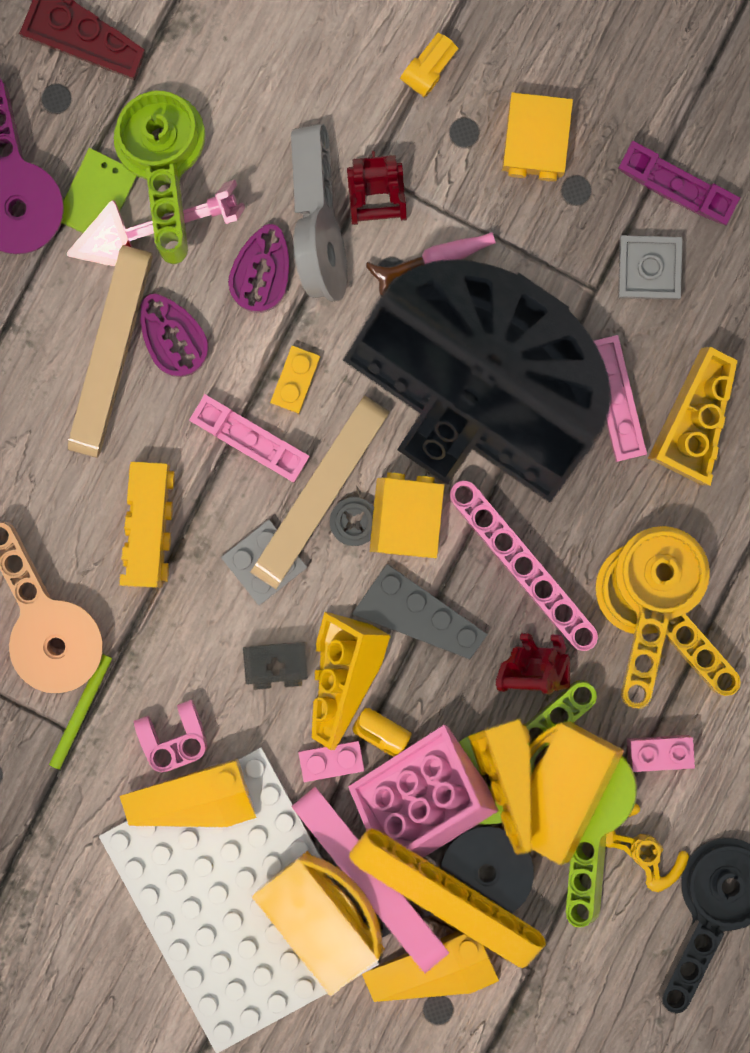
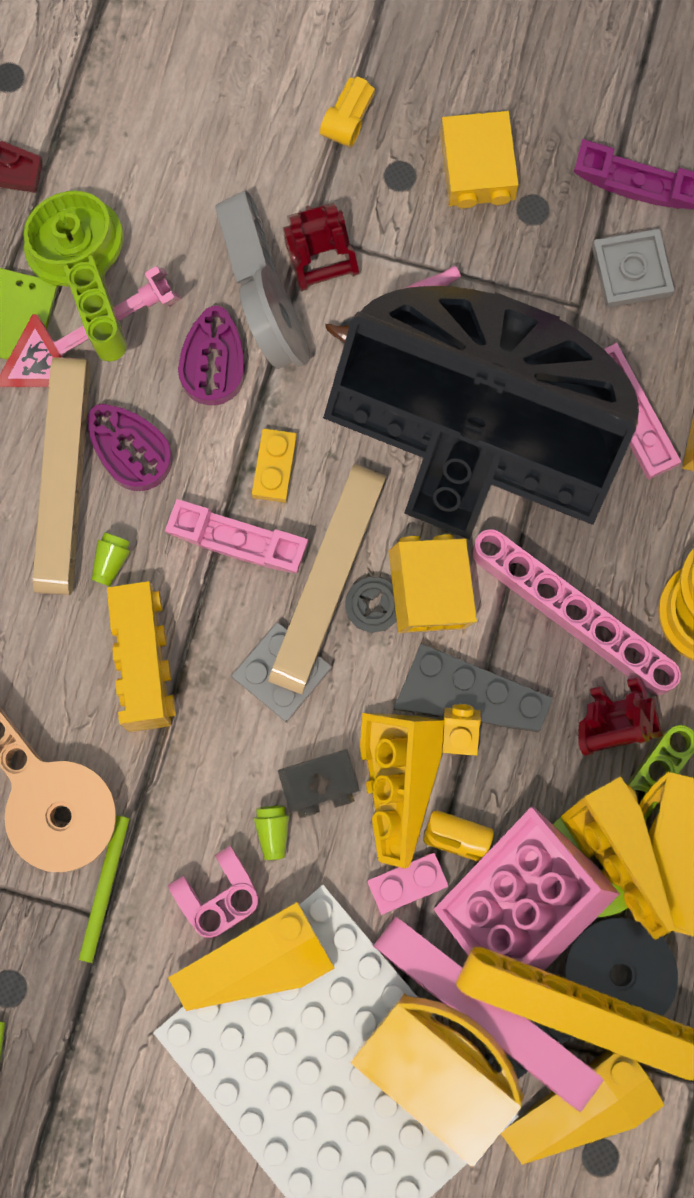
camera: 10 degrees left, 10 degrees down
(137, 432) = (109, 558): none -> lime cone
(229, 691) = (272, 830): none -> lime cone
(403, 645) = (461, 730): none -> yellow bracket

